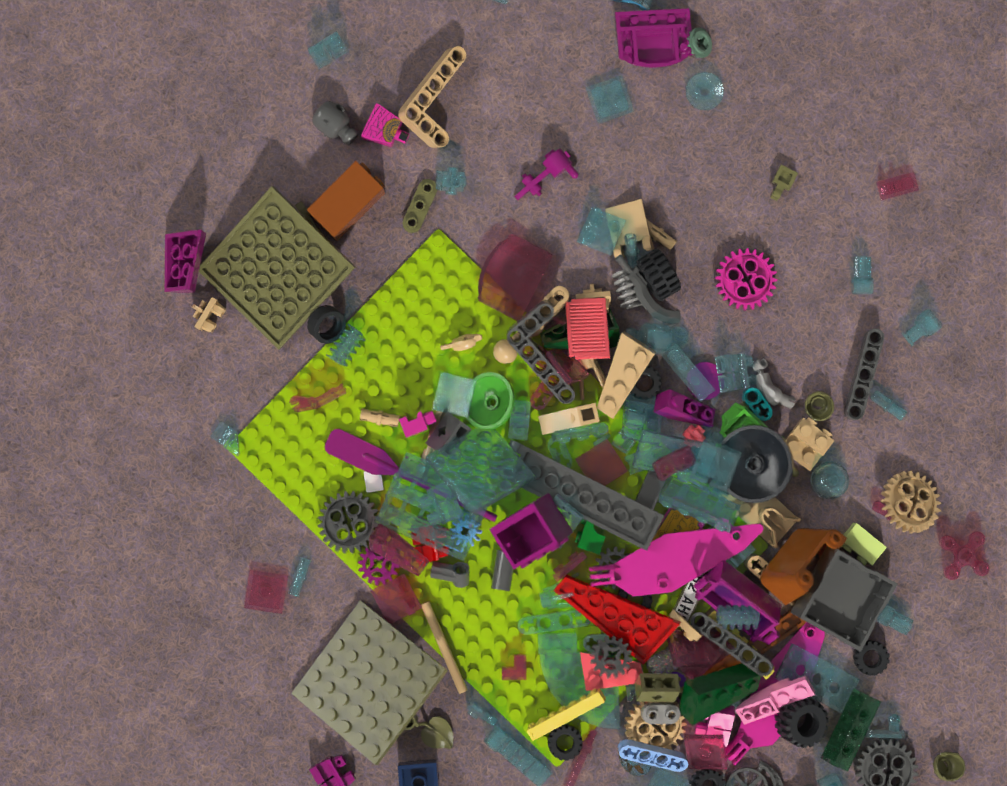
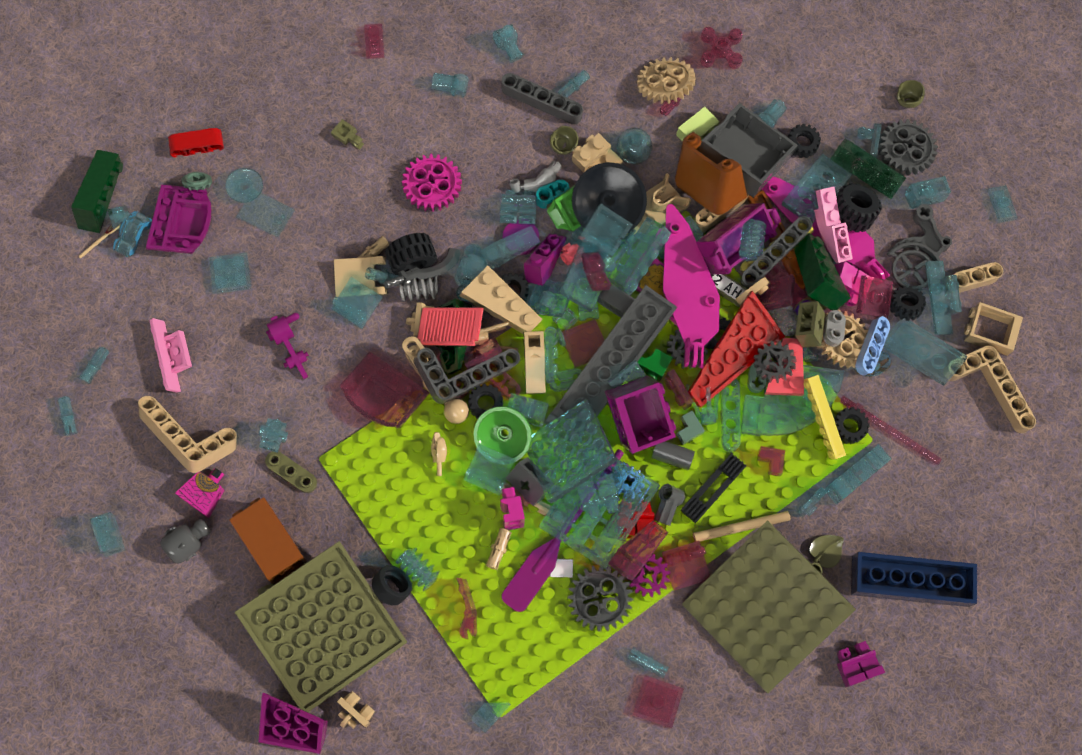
camera: 85 degrees left, 15 degrees down
(500, 630) = (694, 507): none -> black container
(515, 63) = (171, 353): none -> bright pink bracket
(532, 586) = (692, 428): none -> sand green piece
(533, 378) = (483, 391): none -> black tyre
(679, 120) = (266, 214): none -> clear light blue container
(743, 31) = (195, 141): none -> red beam

